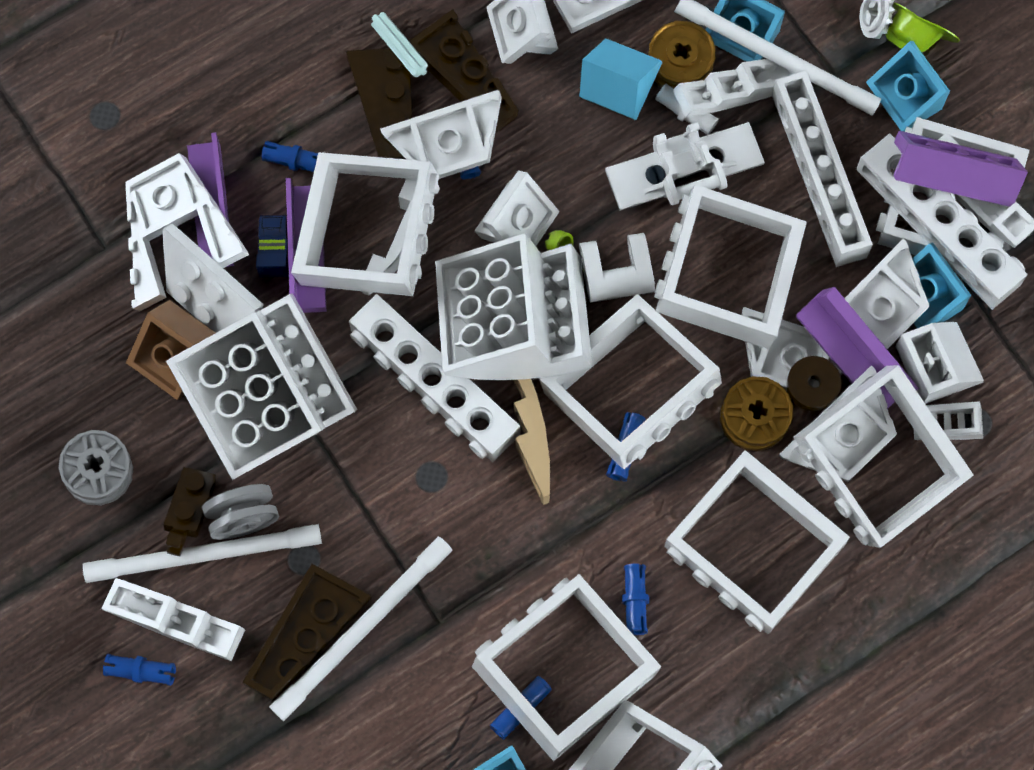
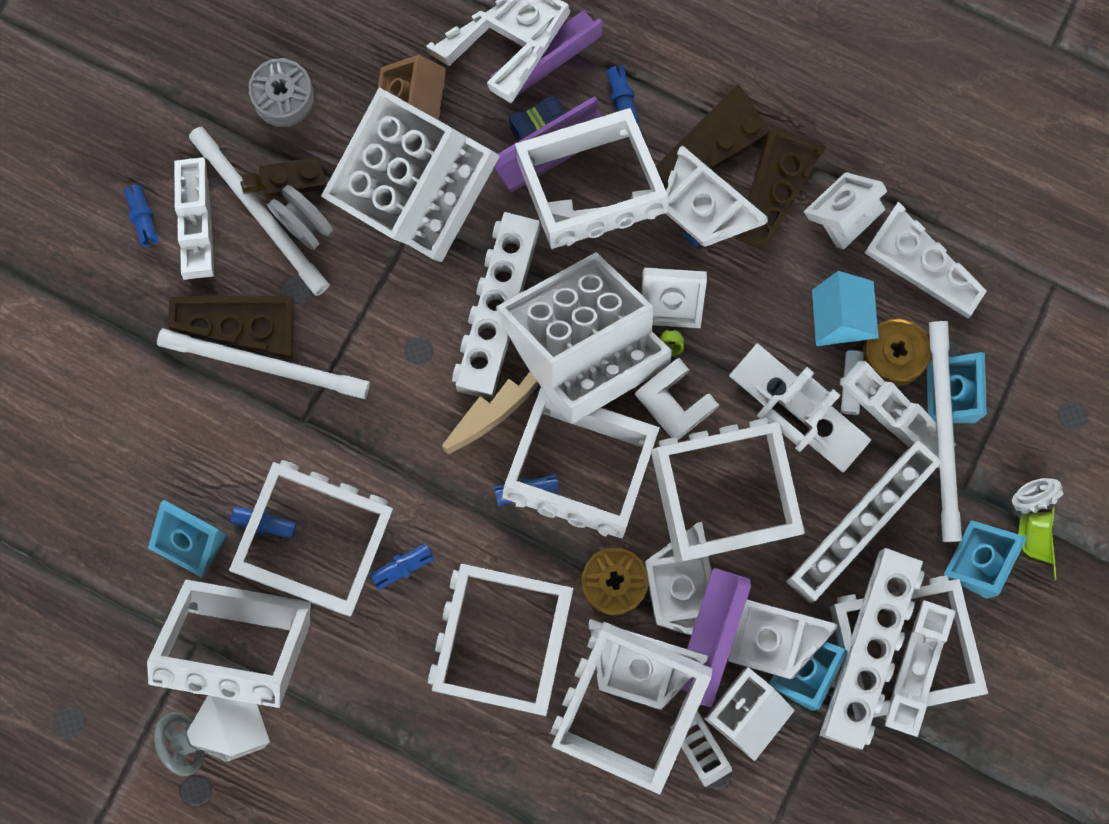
camera: 60 degrees right, 5 degrees up
(203, 284) = (470, 82): white wing -> none
(399, 44) = (765, 121): light aqua axle -> none
(813, 368) = (666, 600): dark brown piece -> none
(958, 169) = (924, 638): medium lavender panel -> none

